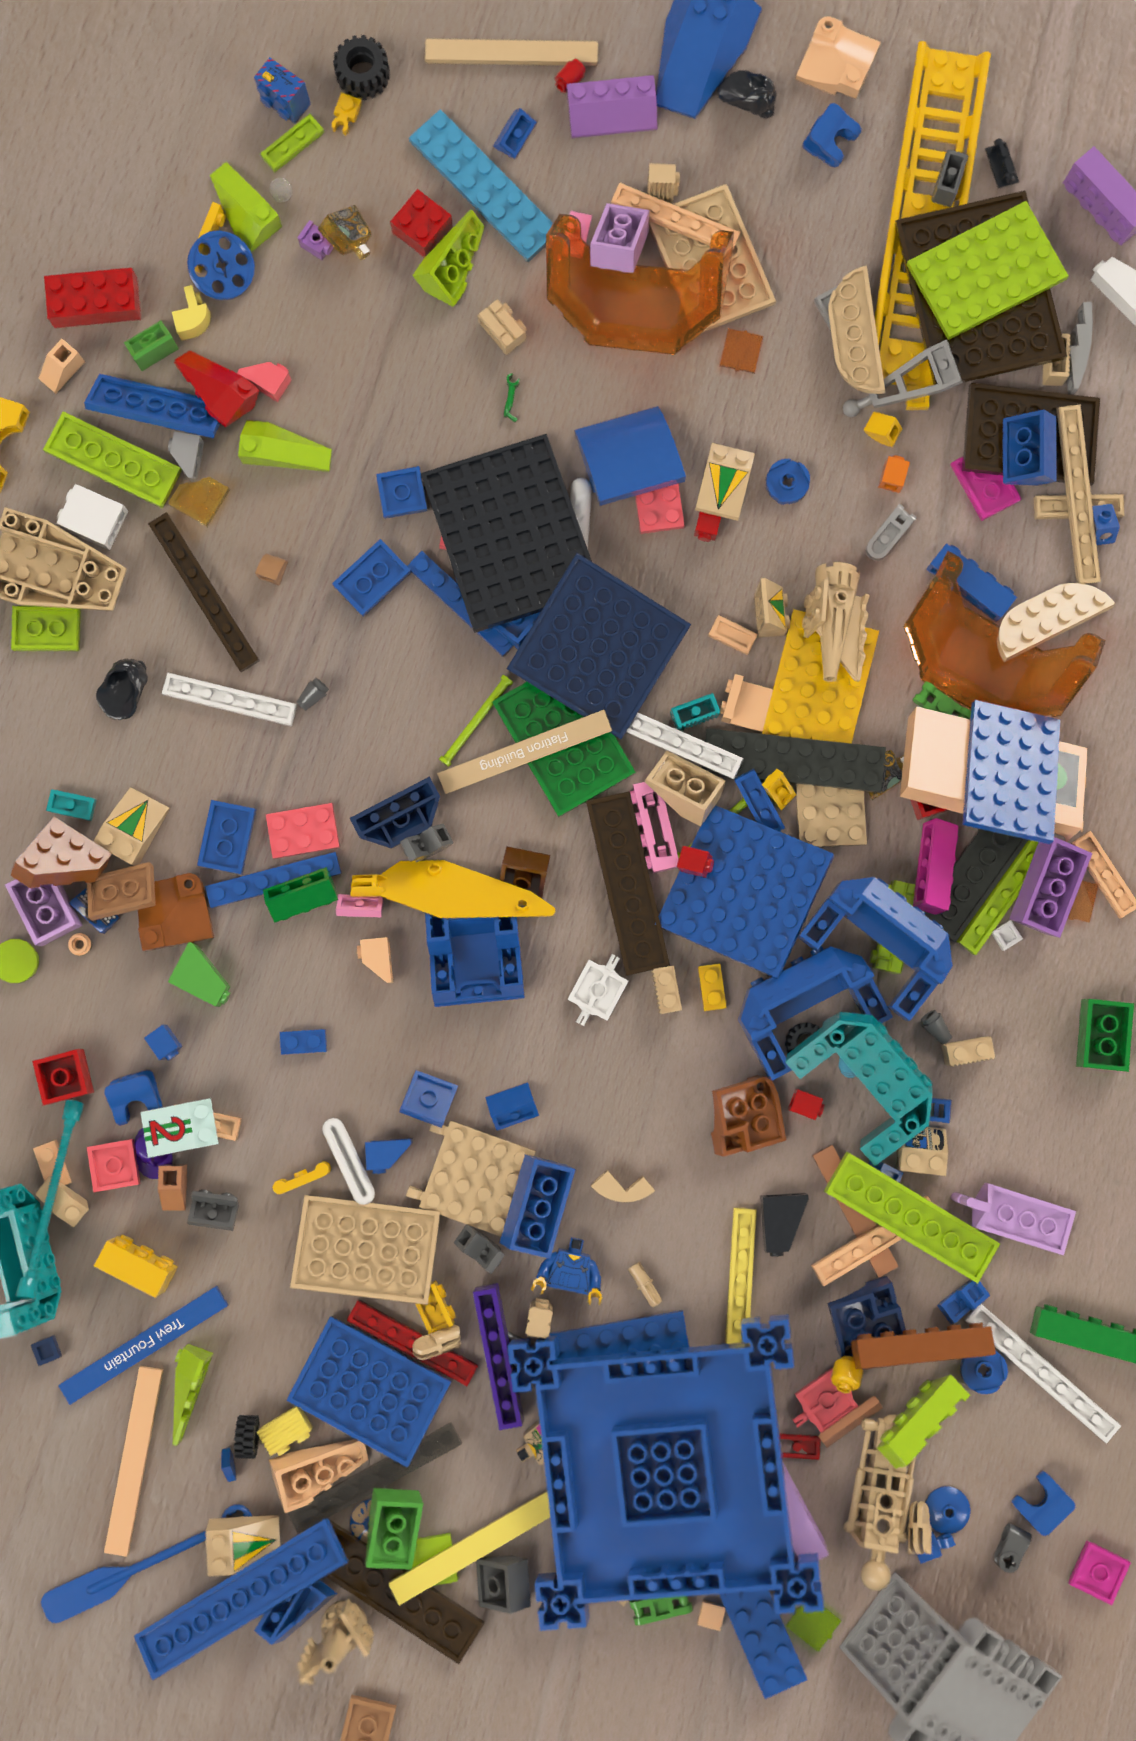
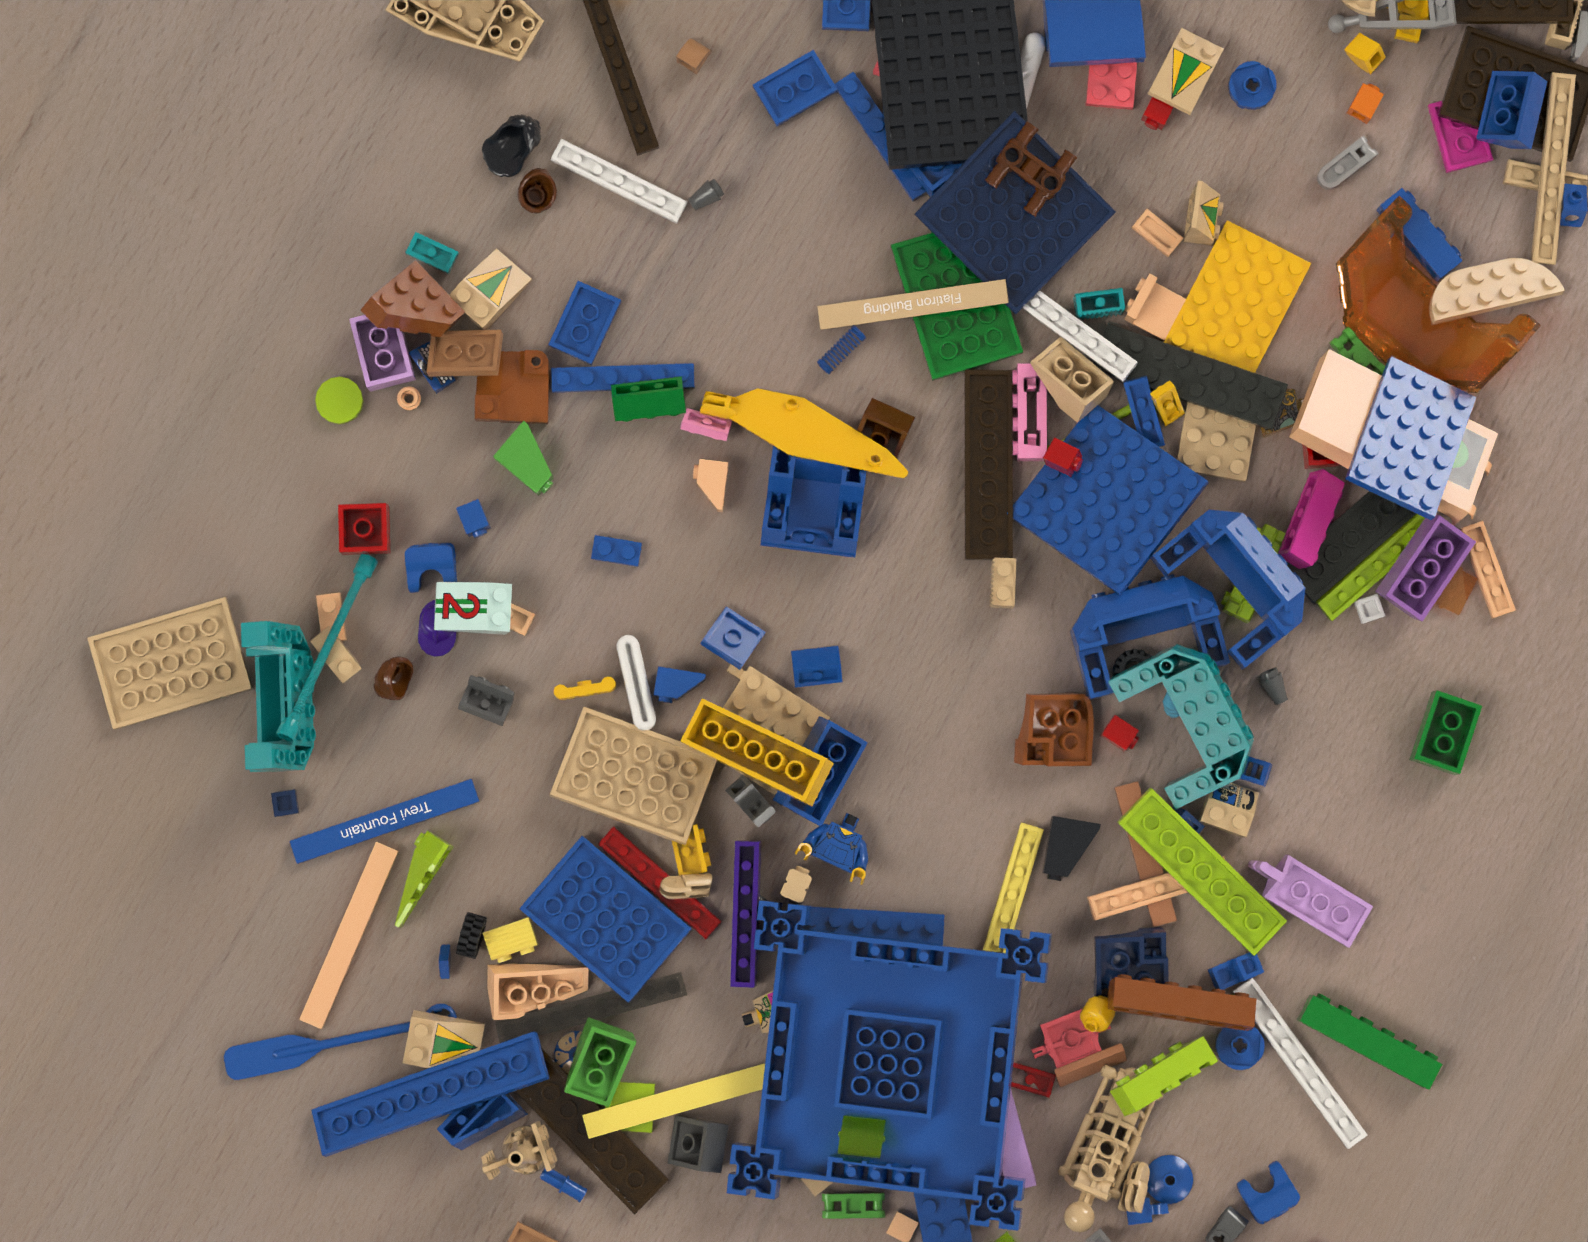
camera: 15 degrees right, 0 degrees up
(45, 629) = (444, 64): lime tile -> none
(113, 1165) = (394, 631): coral plate -> none
(122, 1210) = (393, 678): none -> reddish brown hair
(136, 1265) = (398, 736): yellow brick -> none
(155, 732) = (535, 197): none -> reddish brown hair
(172, 1186) = (451, 667): nougat slope -> none
(302, 831) = (664, 334): coral plate -> none
(389, 1651) = (564, 1184): none -> blue axle
(399, 815) = (769, 340): dark blue wedge -> none
(427, 843) = (790, 376): dark grey brick -> none
(456, 825) = (823, 364): none -> blue piece
(474, 1206) = (757, 752): none -> yellow brick
(475, 721) = (869, 261): lime bar -> none
(598, 990) = (932, 567): white plate -> none
(604, 602) = (1031, 169): none -> reddish brown piece
(610, 1188) = (900, 773): tan brick -> none
(645, 1284) = (911, 878): tan axle -> none
(654, 1548) = (861, 1136): none -> clear neon green piece
(712, 987) = (1051, 592): yellow plate -> none
(838, 619) = (1269, 241): tan piece -> none
(968, 1051) = (1300, 717): tan brick -> none

